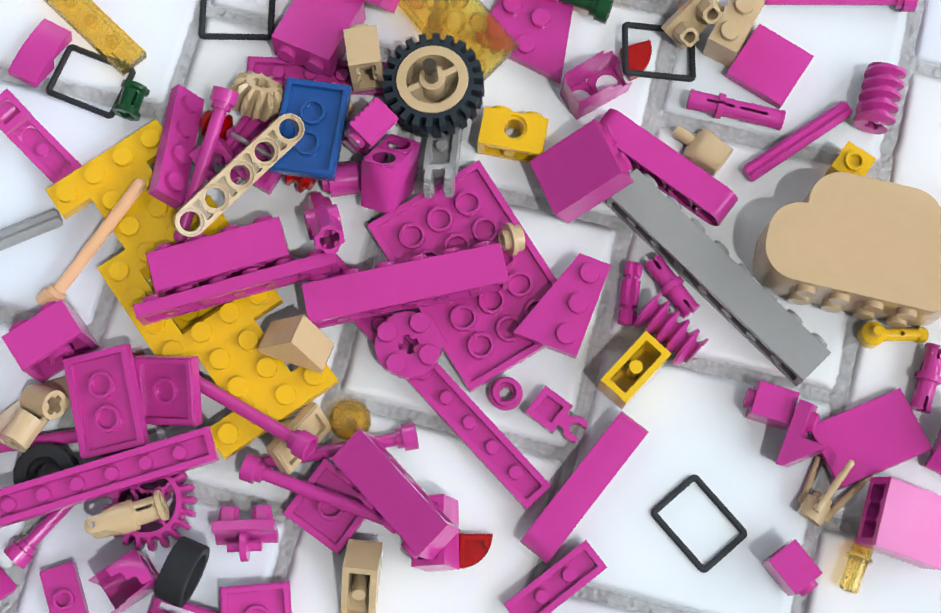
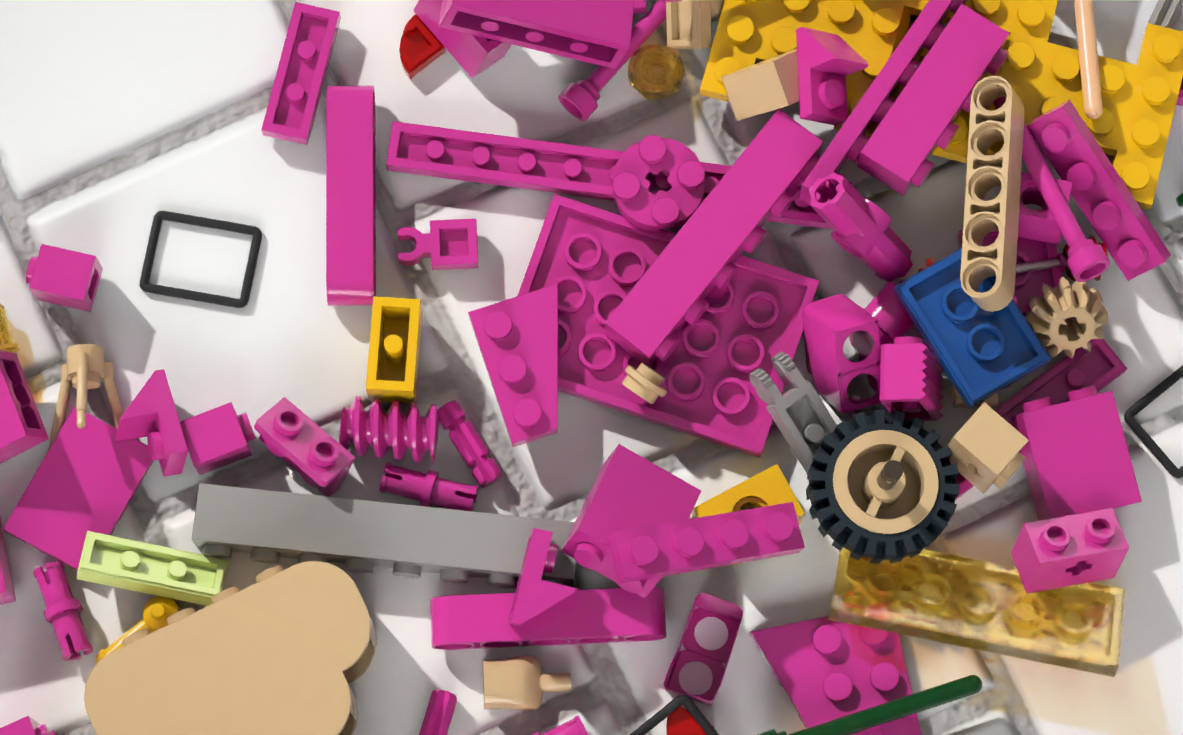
camera: 140 degrees right, 0 degrees up
(260, 327) = (822, 72): none -> dark pink slope
(505, 383) = (510, 214): dark pink plate -> none
(556, 120) = (705, 542): none -> dark pink plate
(663, 171) = (532, 593): none -> dark pink slope
(728, 355) = (304, 446): none -> dark pink bracket
(863, 359) = (151, 568): none -> yellowish green tile

